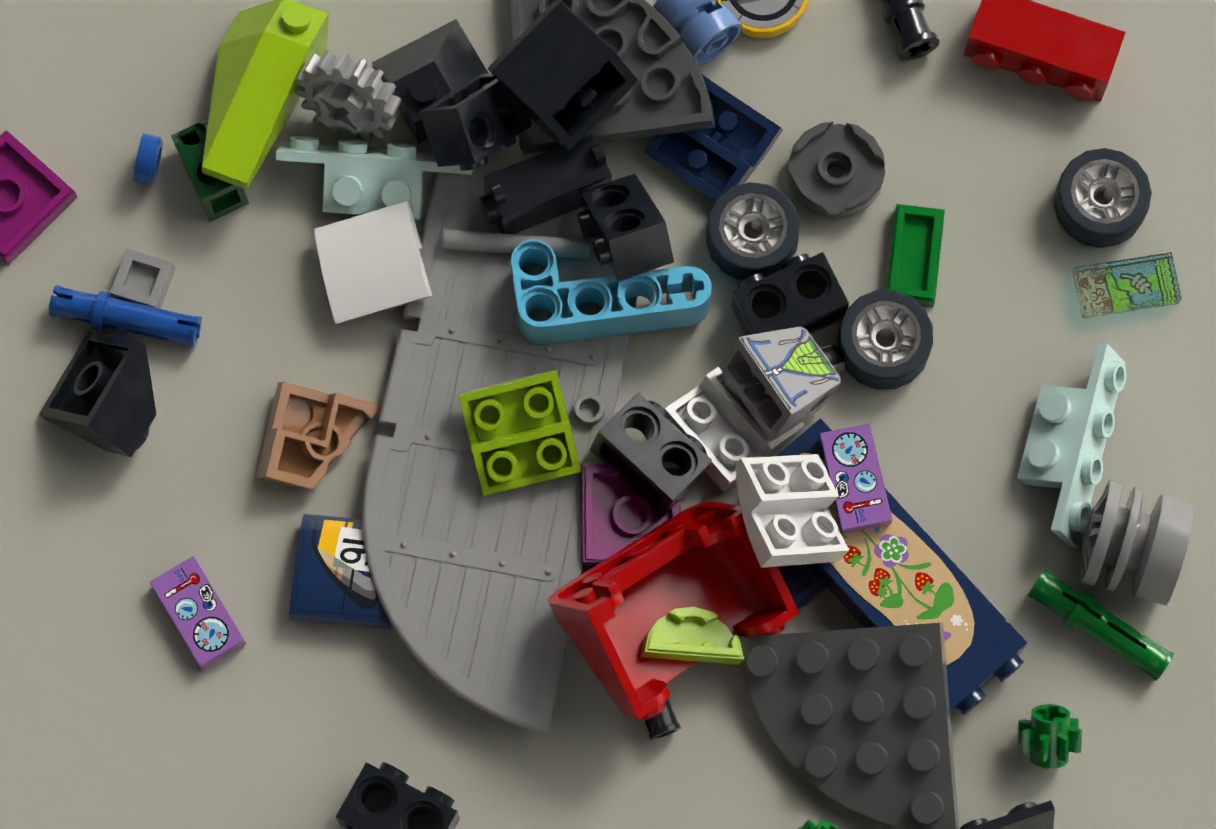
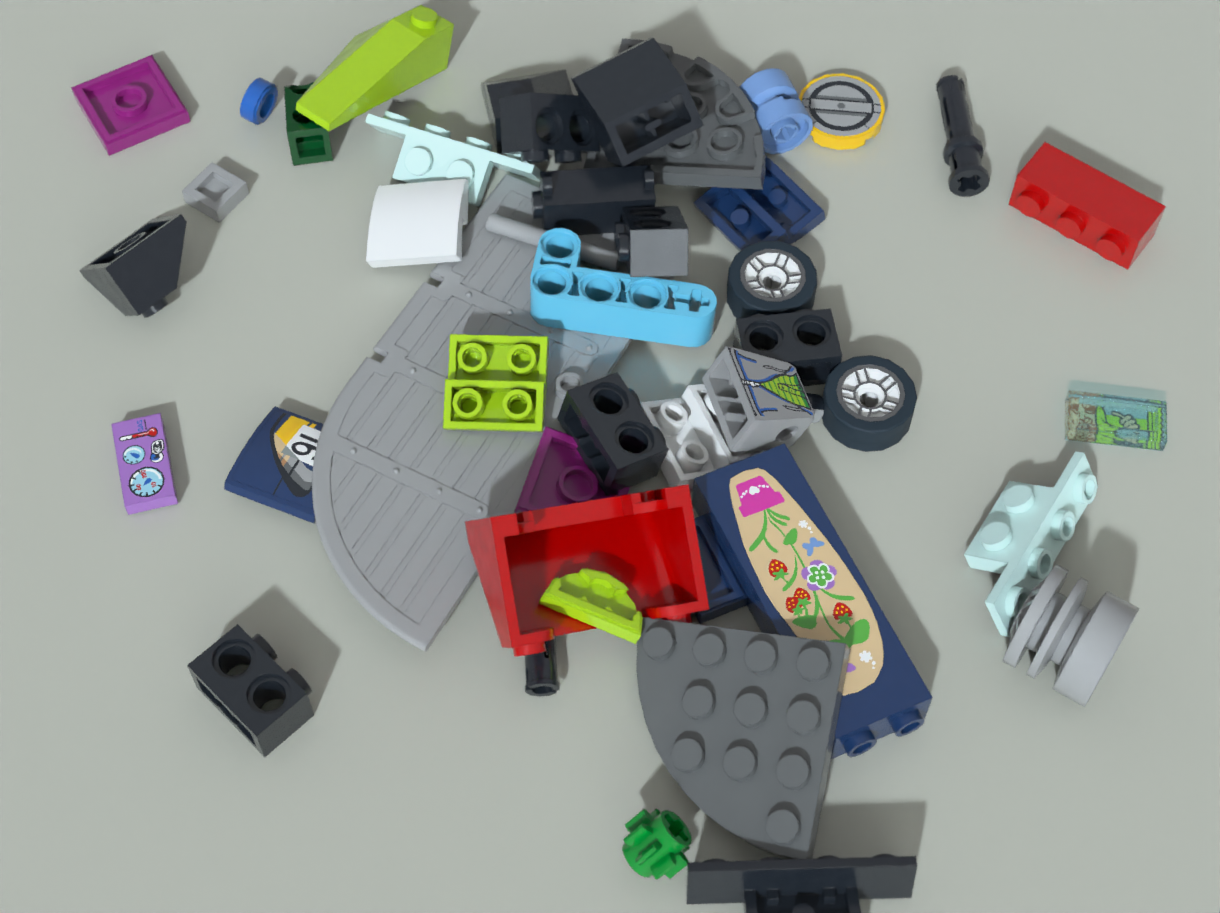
camera: 15 degrees right, 15 degrees down
(121, 315) = (200, 218): blue pin -> none
(307, 434) = (308, 344): medium nougat slope -> none
(348, 95) = (446, 86): light grey gear -> none
(788, 510) = (726, 501): white slope -> none
(842, 147) = (862, 239): dark grey plate -> none
(857, 477) = (802, 500): medium lavender tile -> none
(915, 252) = (921, 340): green tile -> none
(1049, 736) = (932, 798): green gear -> none
(1100, 624) = (1020, 717): green pin -> none
(1122, 184) = (1116, 319): wheel -> none

